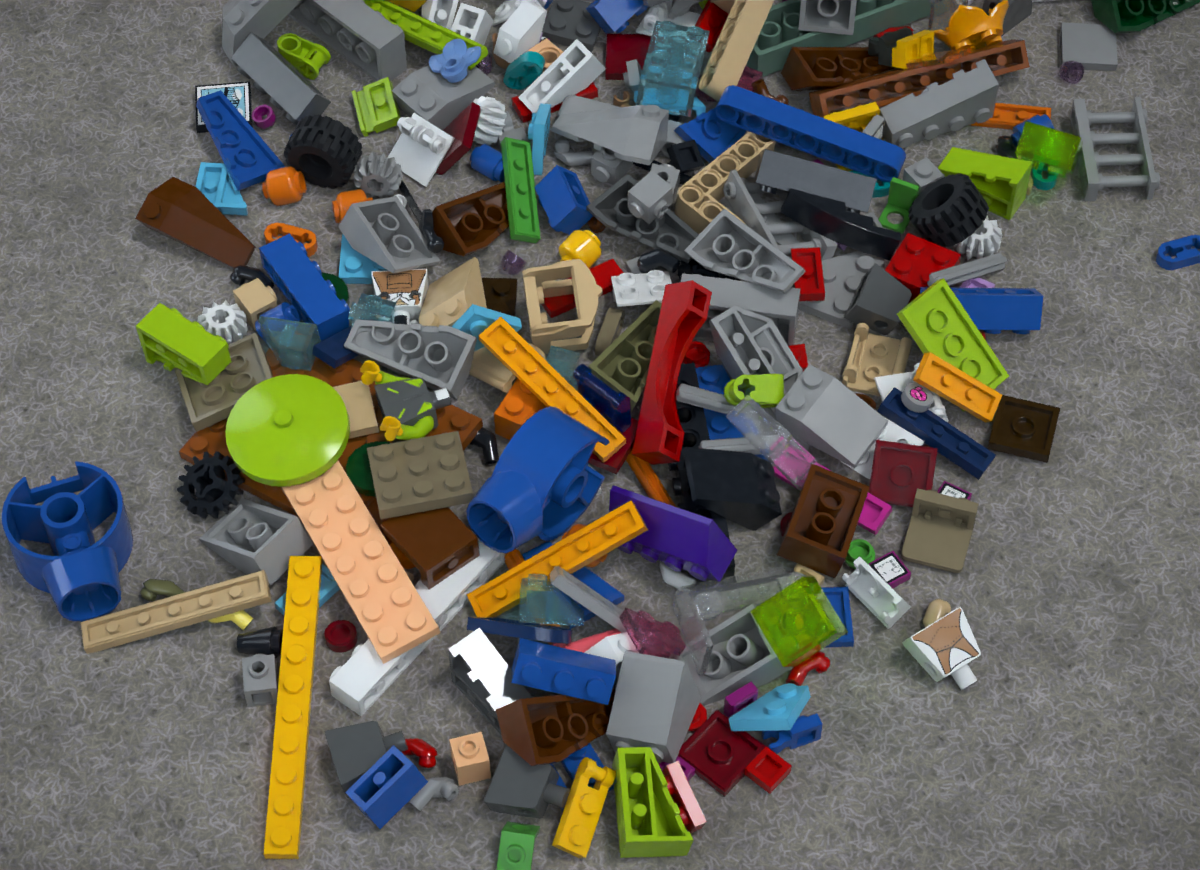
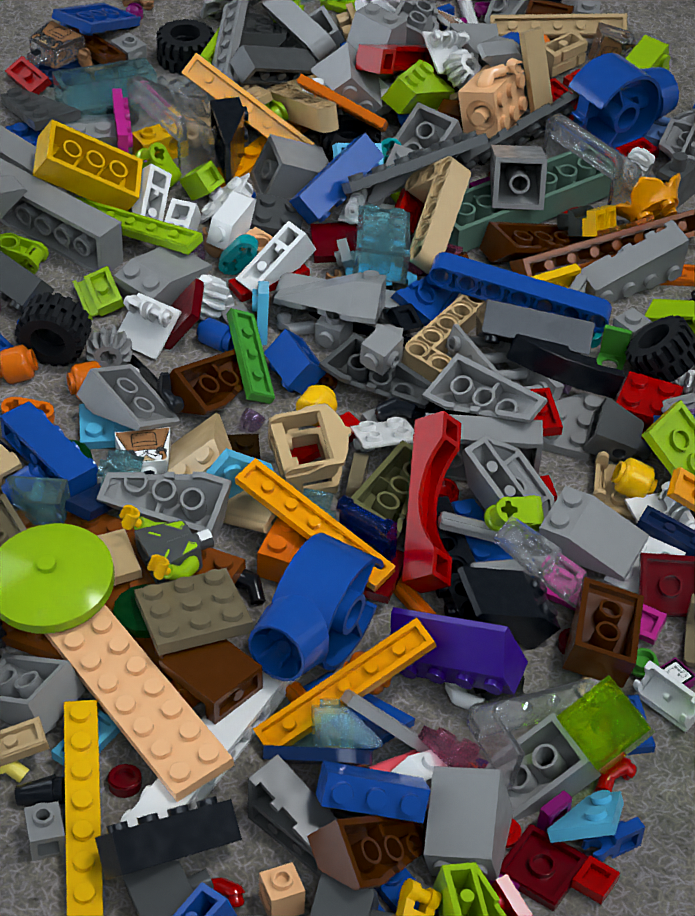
camera: 10 degrees left, 10 degrees down
(369, 700) = (168, 838): none -> black brick
(454, 60) = (173, 245): medium blue plate -> none
(888, 355) = (634, 478): none -> yellow head
(916, 397) = (671, 512): light grey tile -> none

